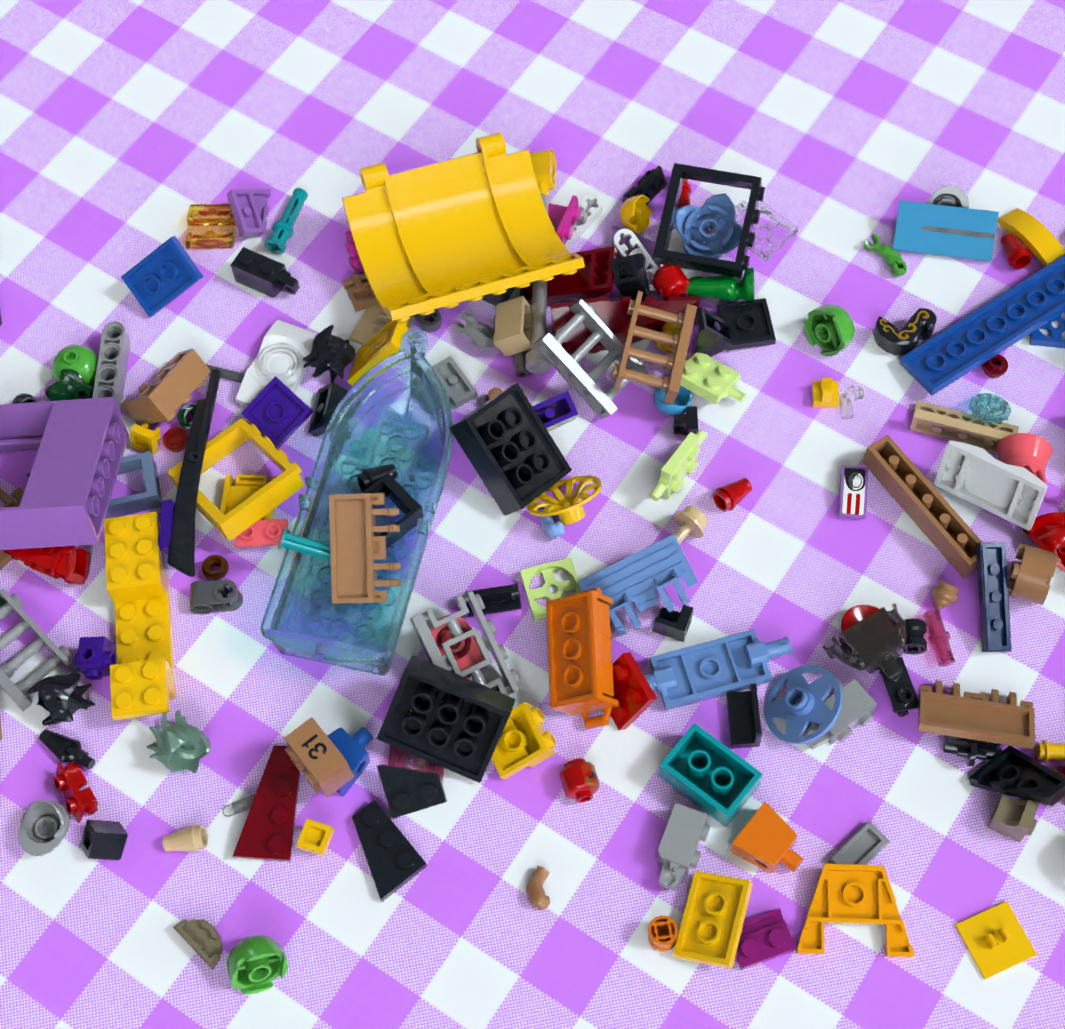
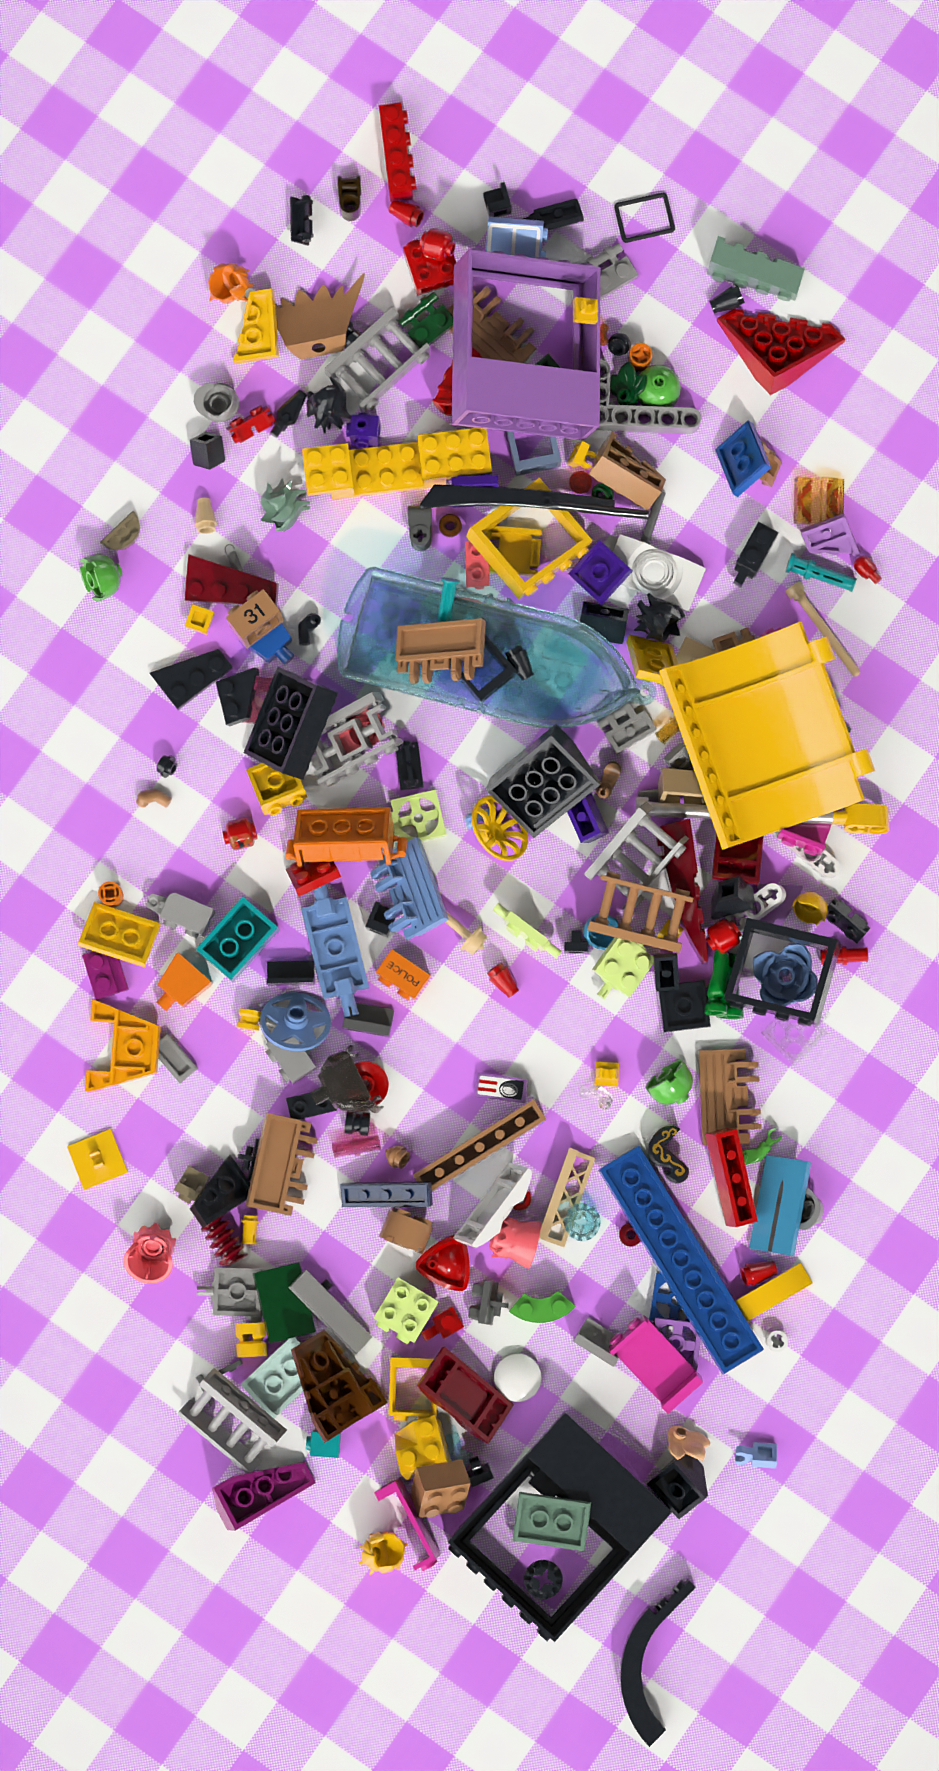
camera: 90 degrees right, 20 degrees up
(38, 381) = (641, 352): none -> orange wheel
(47, 265) = (777, 349): none -> red slope
(285, 183) = (867, 569): none -> red cylinder
(307, 239) = (797, 592): none -> tan piece
(327, 717) = (306, 626): none -> black arm
(450, 347) = (667, 730): none -> clear yellow pin
(498, 871) = (167, 766): none -> black plate
(736, 594) = (403, 975): none -> orange brick
(794, 625) = (370, 1020): none -> dark grey panel
(804, 761) = (249, 1019): none -> yellow wheel
(859, 290) = (720, 1092): none -> medium nougat hinge
(924, 268) = (731, 1177): none -> red brick

